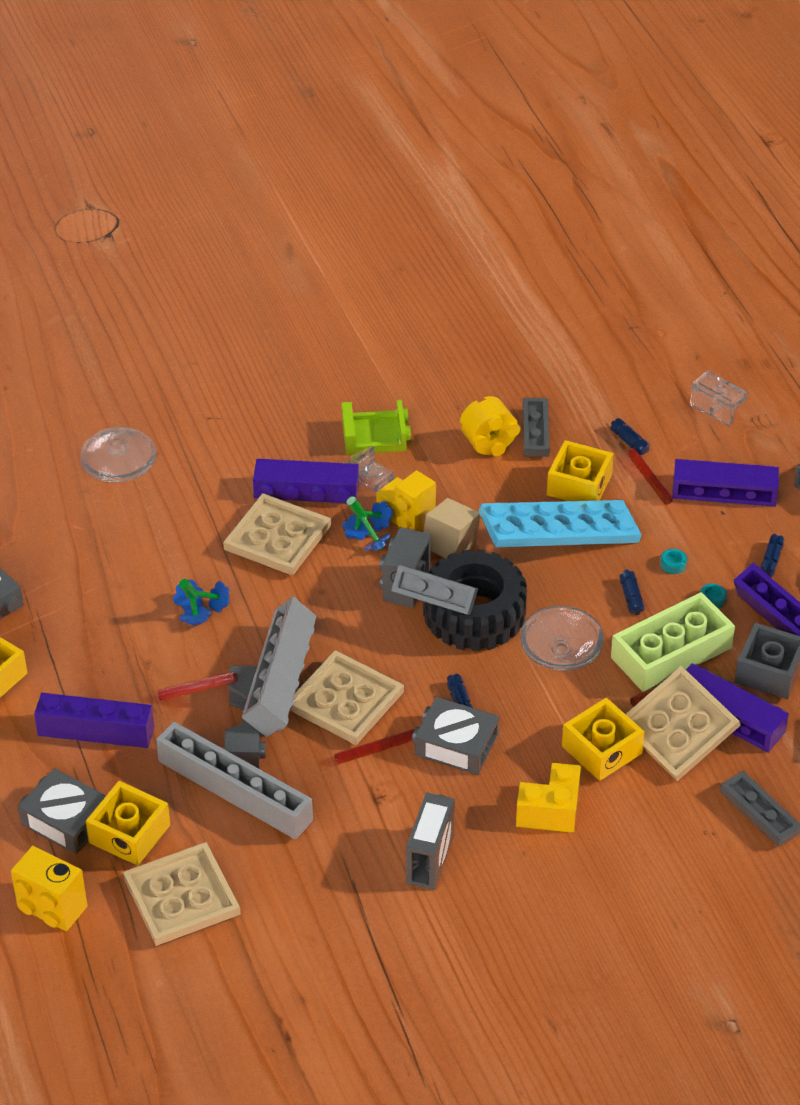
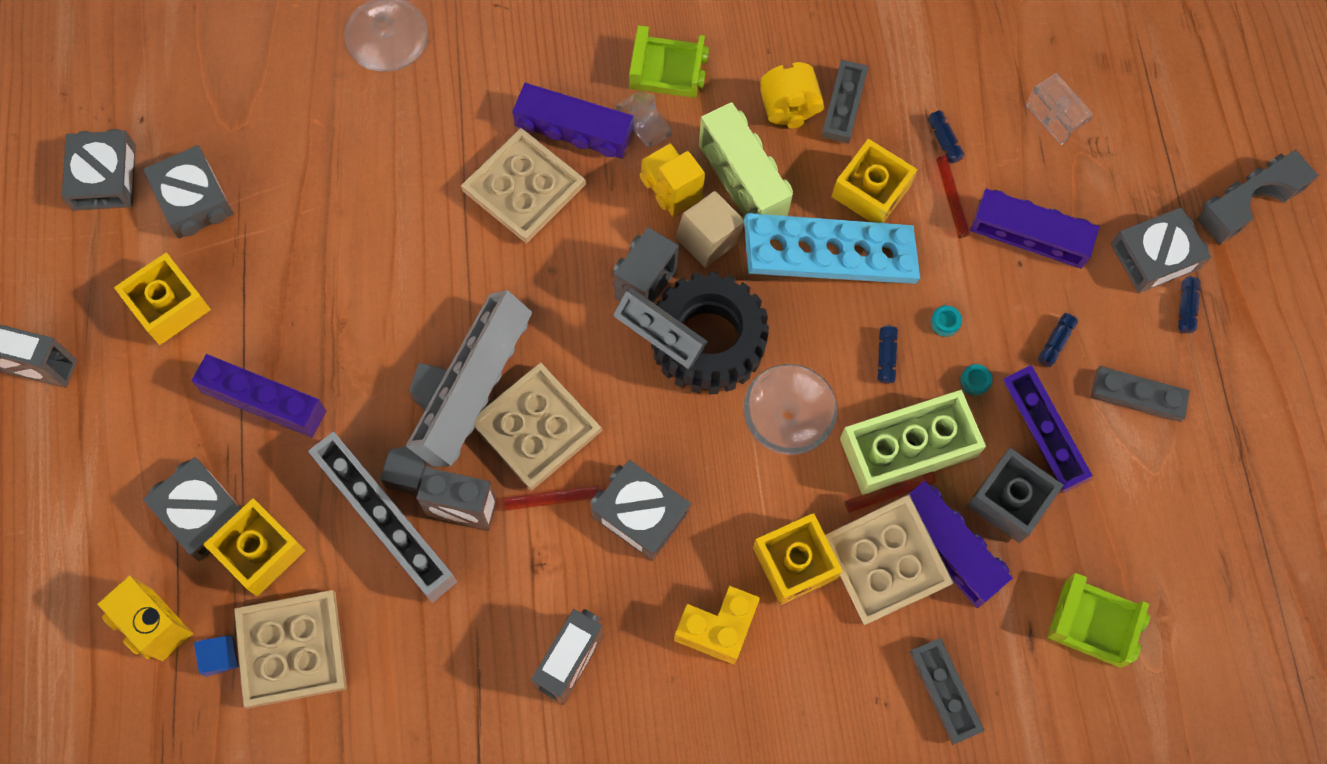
camera: 10 degrees right, 25 degrees up
(115, 913) = (216, 655): none -> blue slope
(190, 598) = (406, 248): blue plant -> none
(196, 686) = (379, 378): clear red bar -> none
(298, 749) = (457, 499): none -> dark grey brick
(359, 526) = (614, 195): blue plant -> none
(458, 690) = (660, 452): dark blue axle -> none
(463, 475) = (742, 163): none -> yellowish green brick

